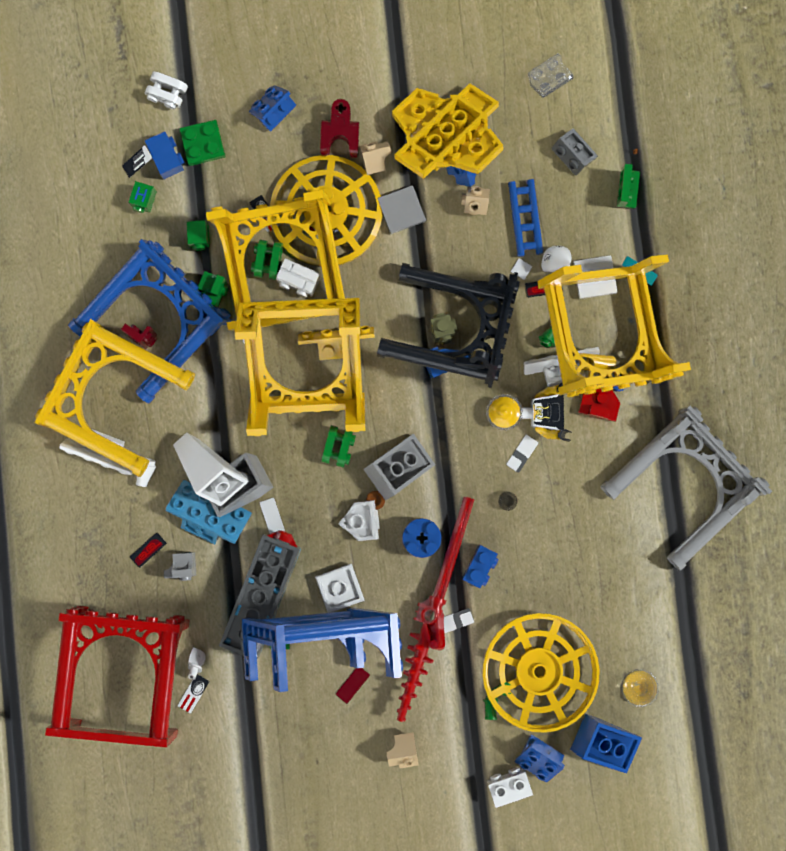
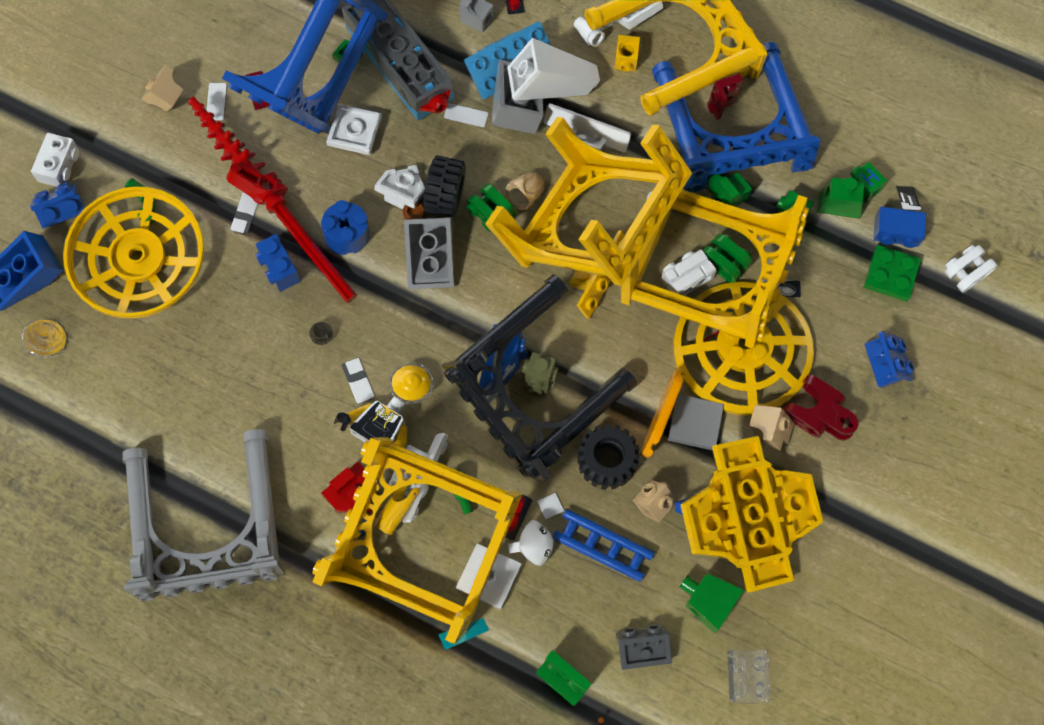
camera: 125 degrees right, 15 degrees down
(138, 430) = (630, 46): none -> yellow brick
(169, 205) = (841, 198): none -> green torso
(233, 418) = (590, 130): none -> white bracket
(304, 430) = (530, 184): none -> tan piece
(347, 486) = (444, 186): none -> black tyre
(382, 709) = (216, 99): none -> white sticker
(414, 231) = (662, 413): none -> light orange tile
(472, 234) = (613, 438): none -> black tyre
(516, 127) = (710, 599): none -> green torso

